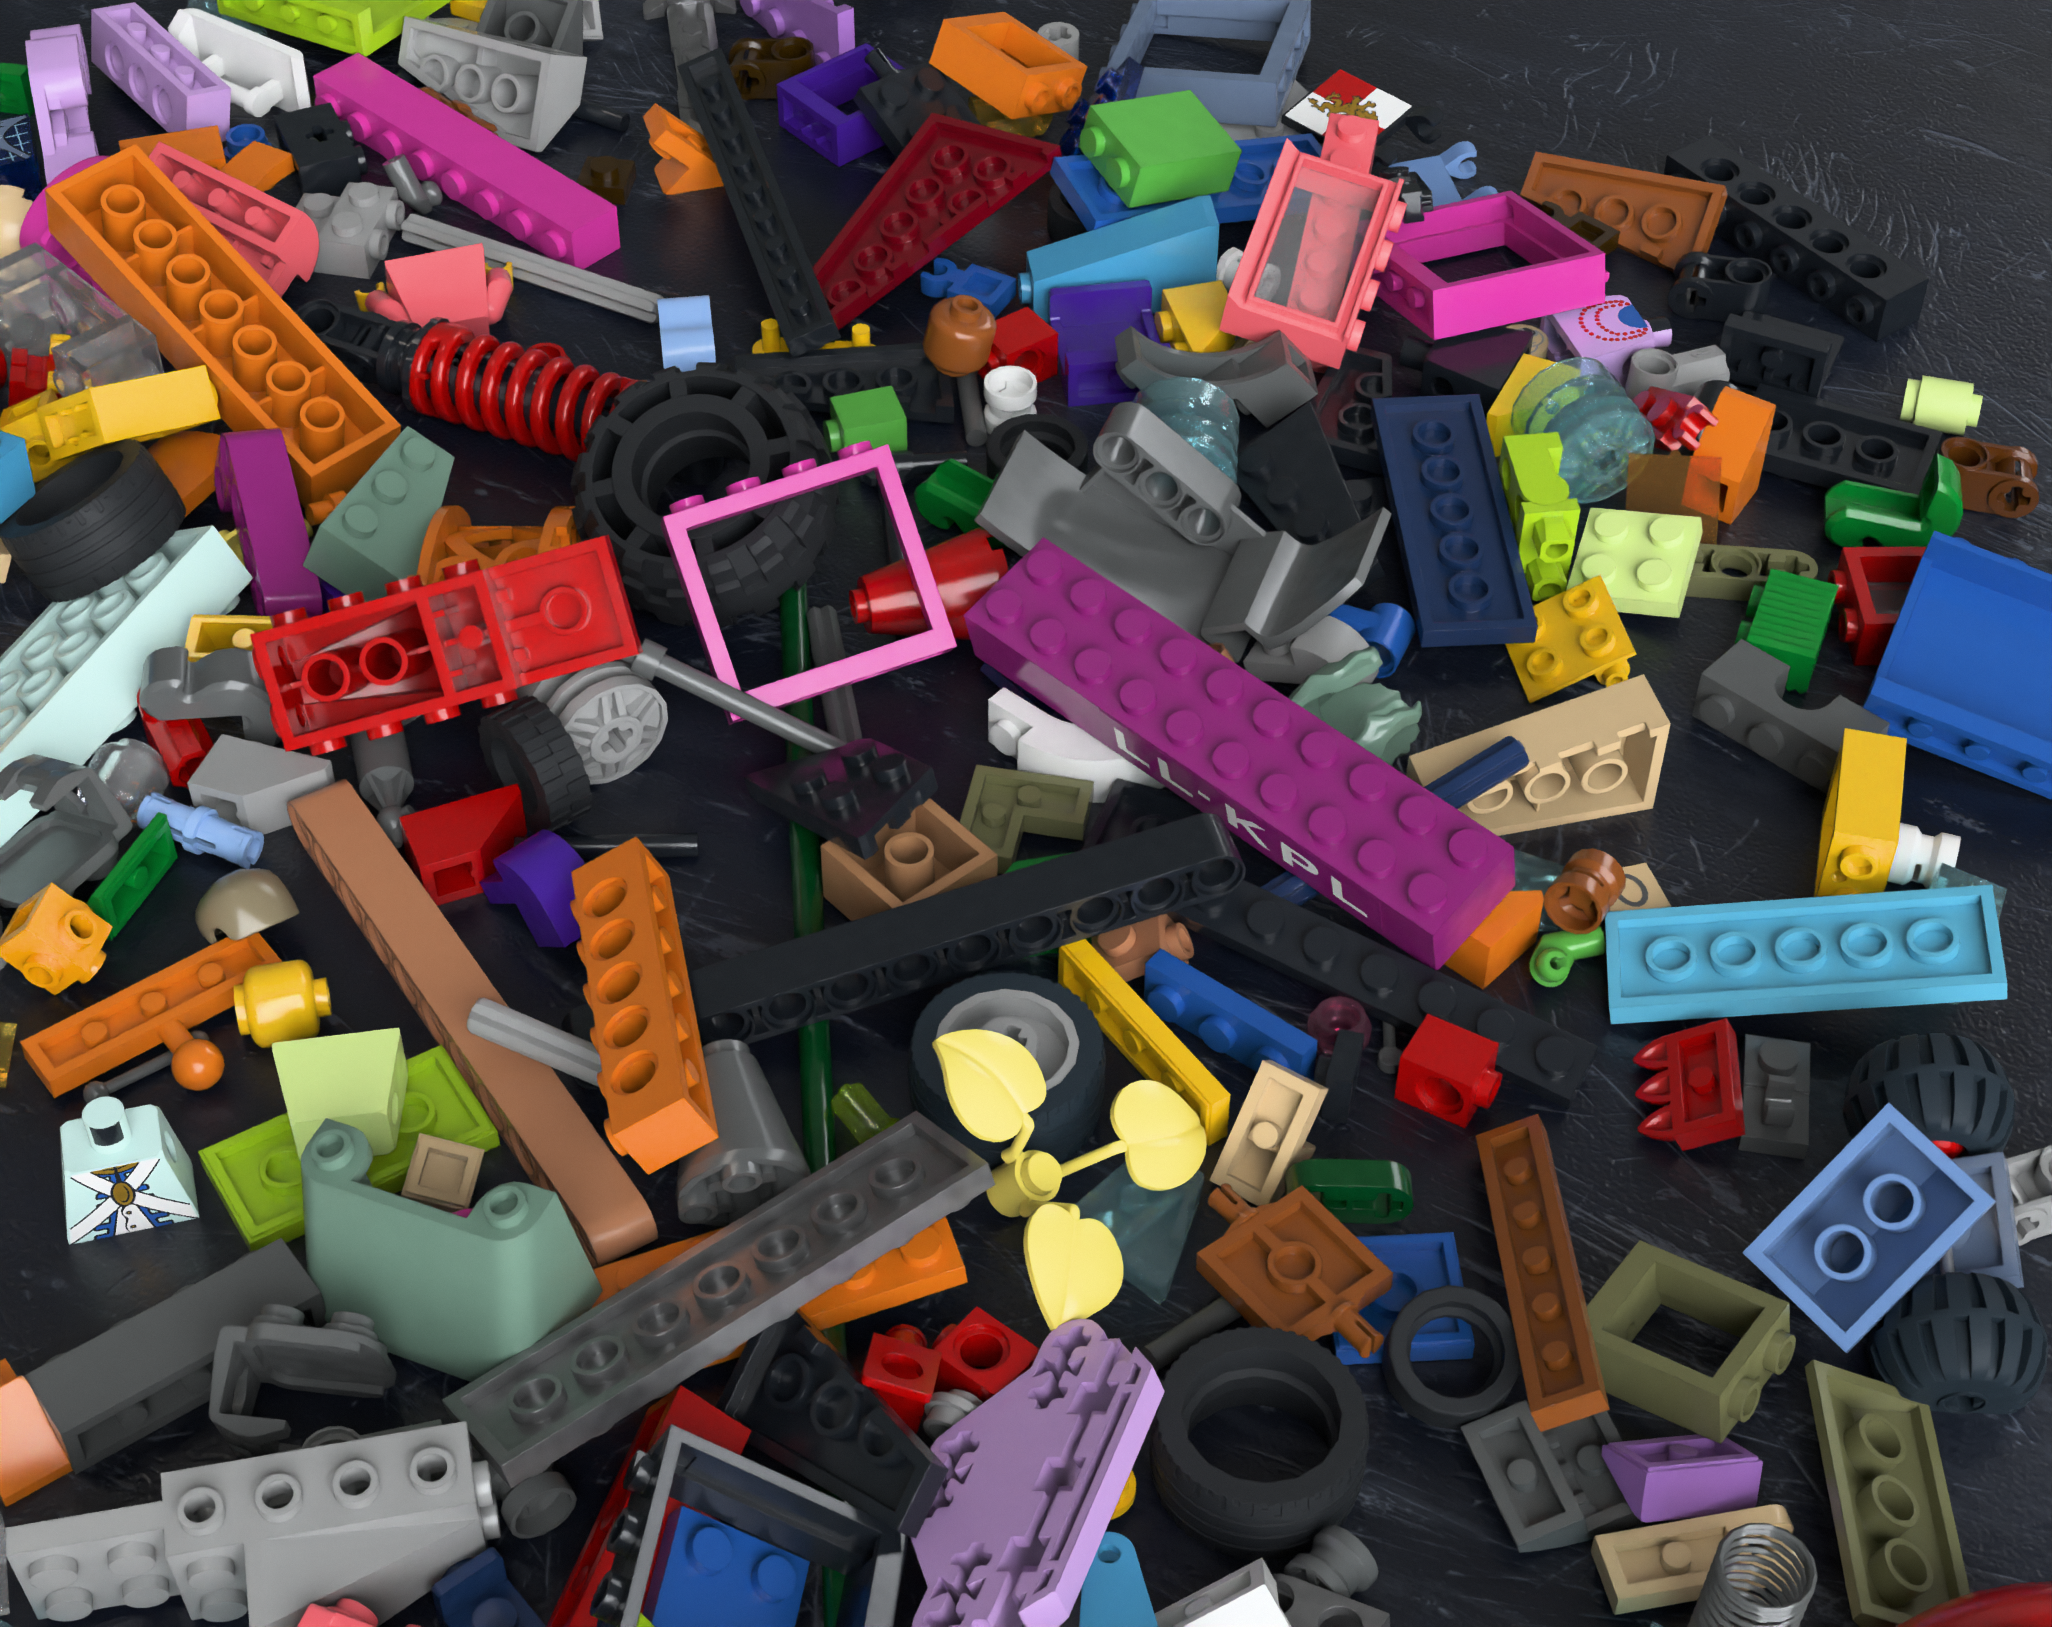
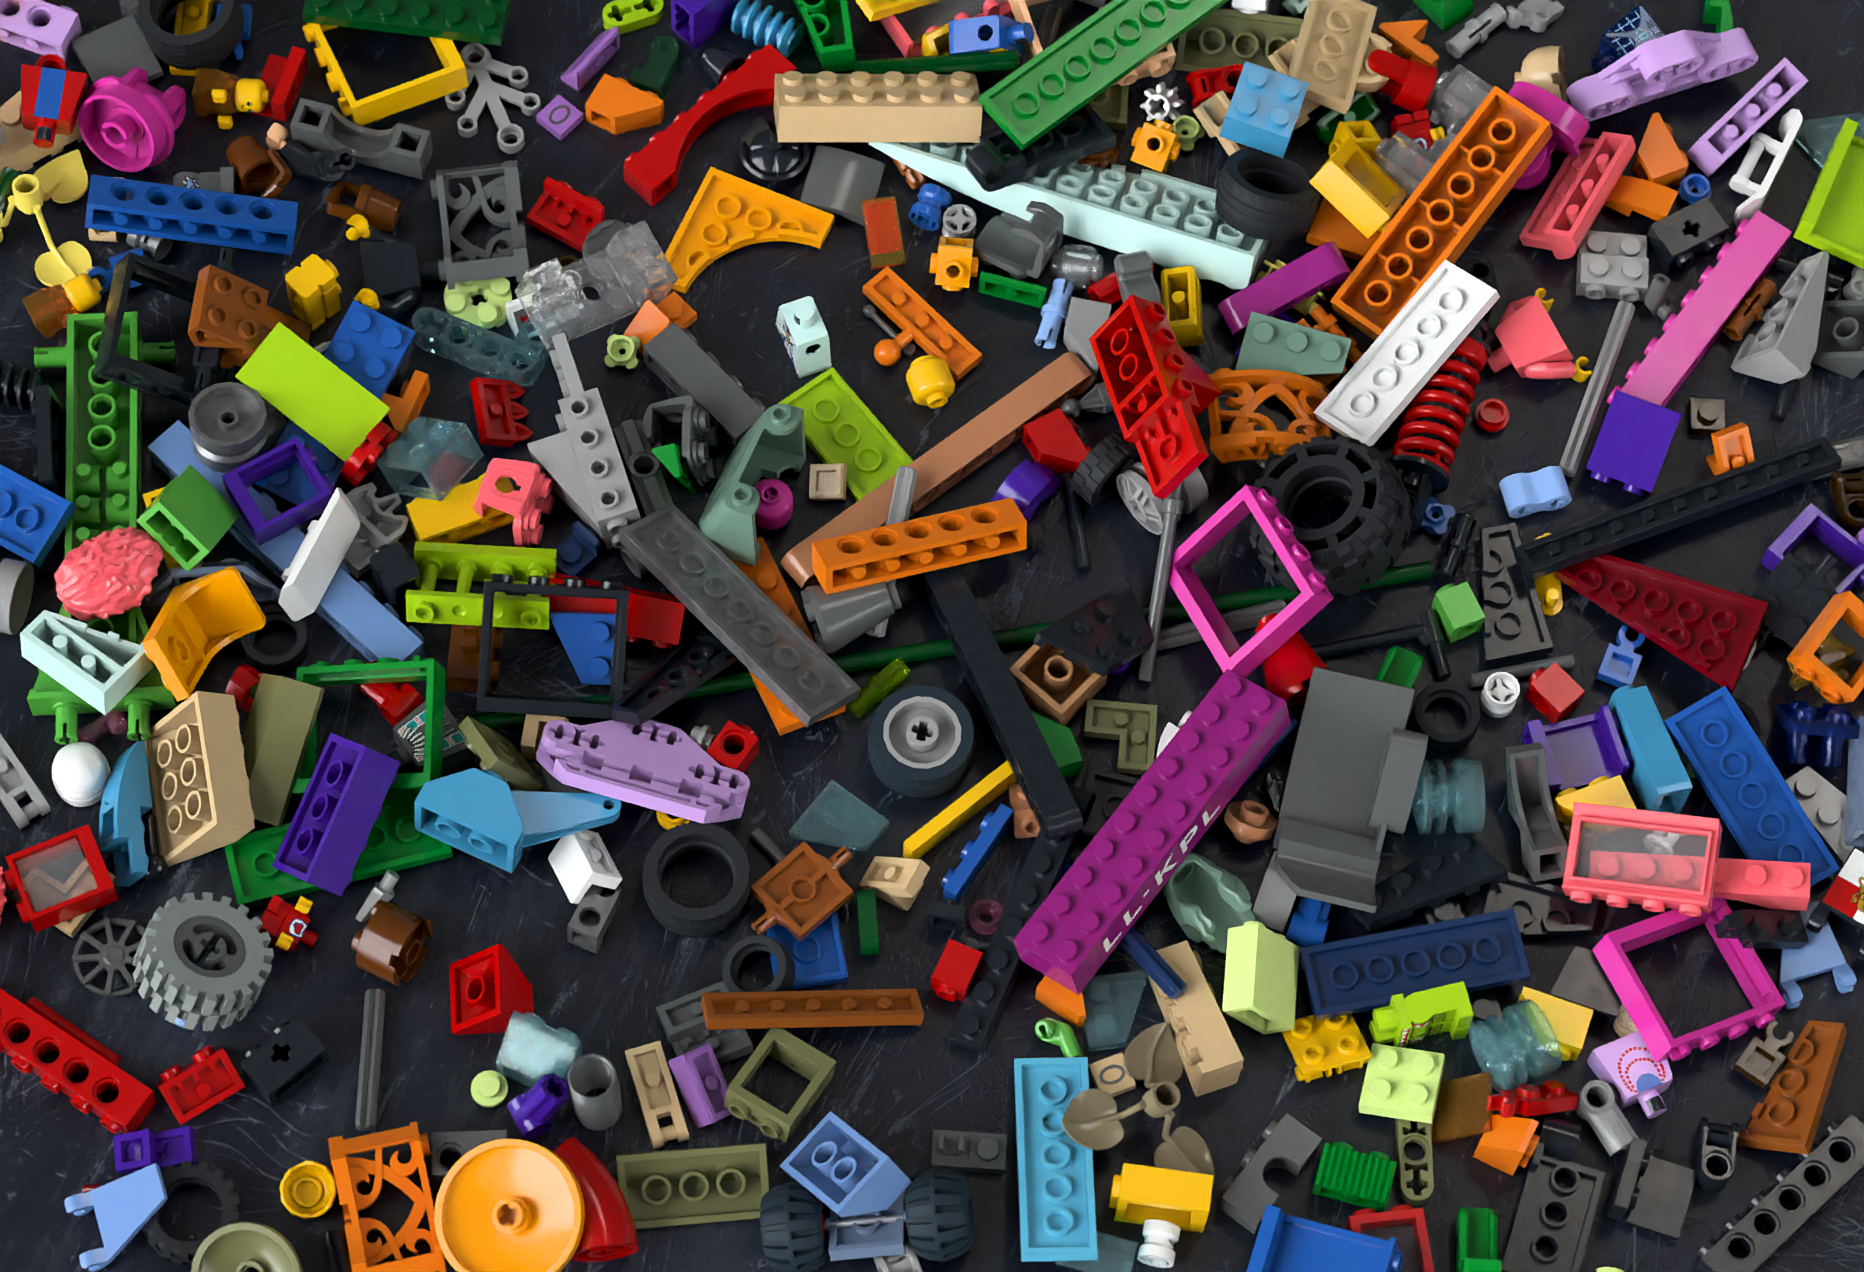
camera: 80 degrees right, 20 degrees up
(39, 1479) = (620, 342): none -> yellowish green plate
(244, 904) = (991, 349): dark tan hair -> none
(345, 1079) = (858, 422): yellowish green torso -> none
(363, 1388) = (672, 459): none -> green slope
(446, 390) = (1407, 354): none -> white plate
(645, 215) = (1633, 442): none -> dark purple panel
(902, 1371) = (716, 706): red bracket -> none
(959, 335) = (1536, 649): dark orange head -> none
(1068, 1259) = (866, 718): light yellow plant -> none
(1159, 148) = (1745, 750): bright green brick -> none
(1335, 1562) = (630, 919): dark grey wheel -> none
(1475, 673) = (1260, 978): none -> yellowish green brick
(1584, 891) = (1098, 1043): dark orange wheel -> none
(1695, 1085) = (963, 1104): red plate -> none
(1766, 822) = (1150, 1057): none -> dark tan plant

